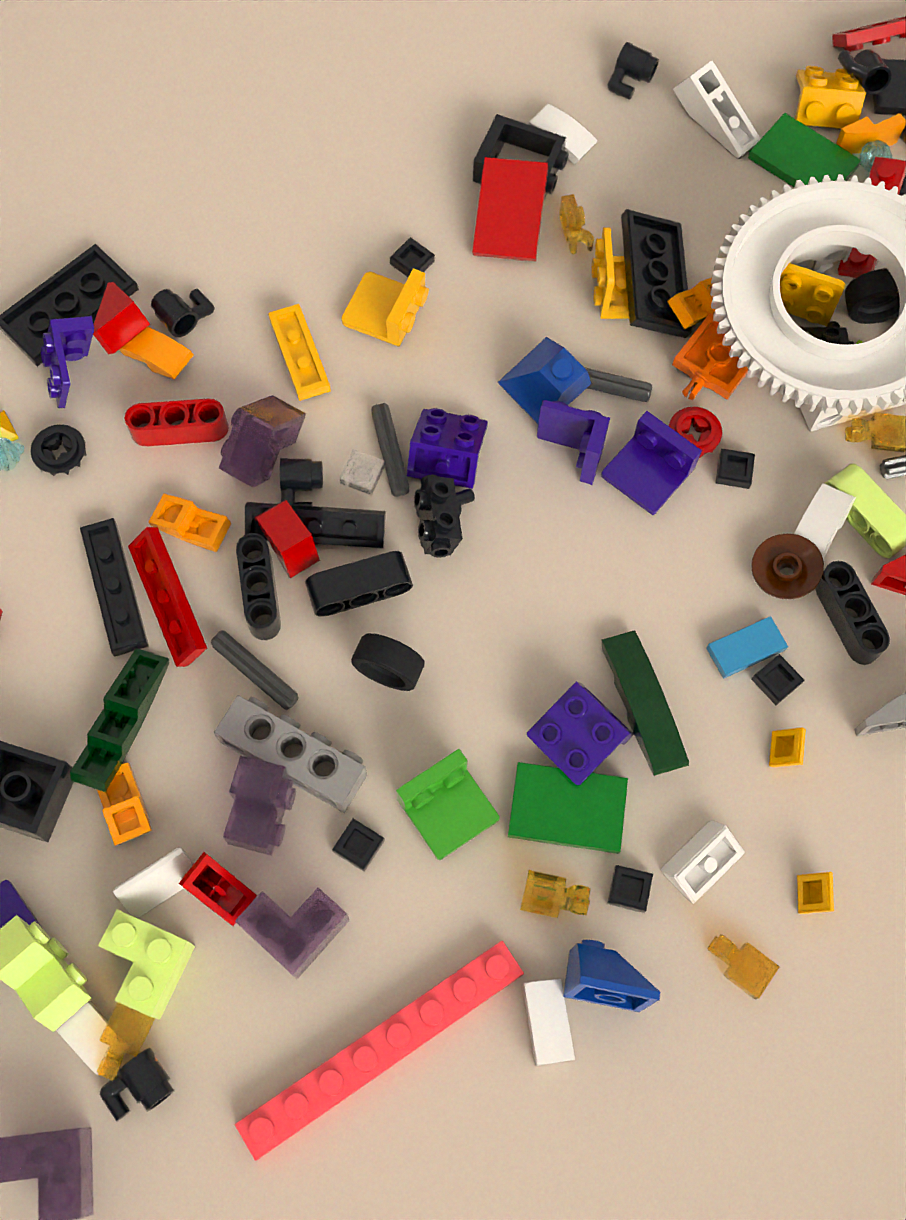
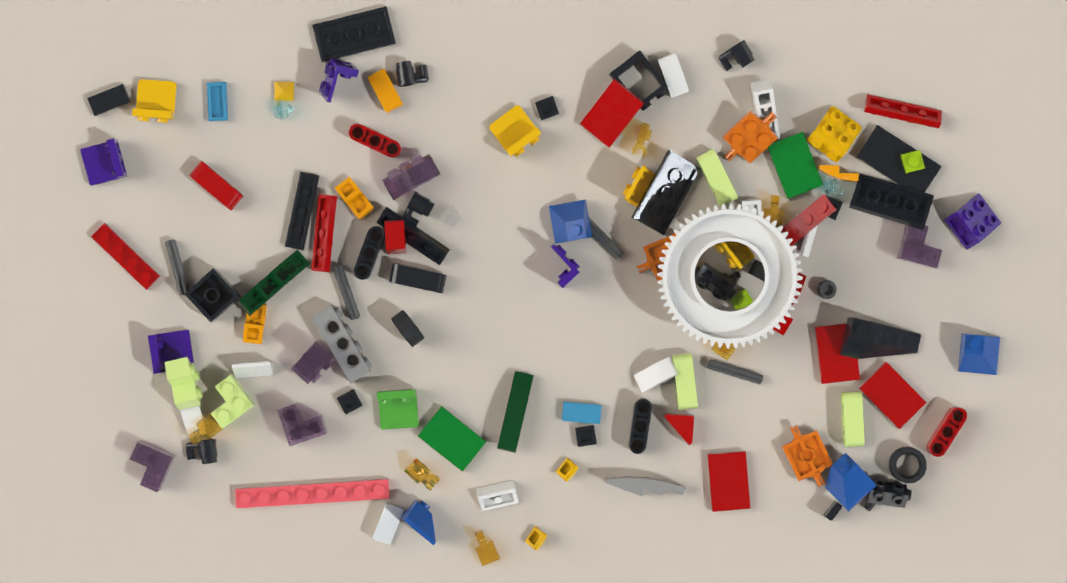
camera: 30 degrees right, 20 degrees up
(51, 439) = (319, 120): black gear -> none
(117, 319) = (375, 64): slope -> none
(217, 888) = (278, 388): red slope -> none
(299, 352) = (457, 133): yellow plate -> none
(390, 449) = (472, 213): dark grey axle -> none
(439, 513) = (476, 262): black brick -> none
(446, 446) = (501, 228): dark purple bracket -> none
(578, 733) = (477, 409): dark purple bracket -> none
(630, 889) = (457, 489): black tile -> none
(652, 464) = (592, 298): dark purple bracket -> none
(693, 304) = (671, 221): light orange slope -> none
(702, 215) = (716, 177): none -> yellowish green beam
(704, 422) = (632, 299): red gear -> none
(721, 146) = (750, 136): none -> orange plate
(735, 468) = (636, 320): black tile -> none
(790, 552) = (618, 379): reddish brown dish -> none
(867, 69) = (864, 135): black piece -> none

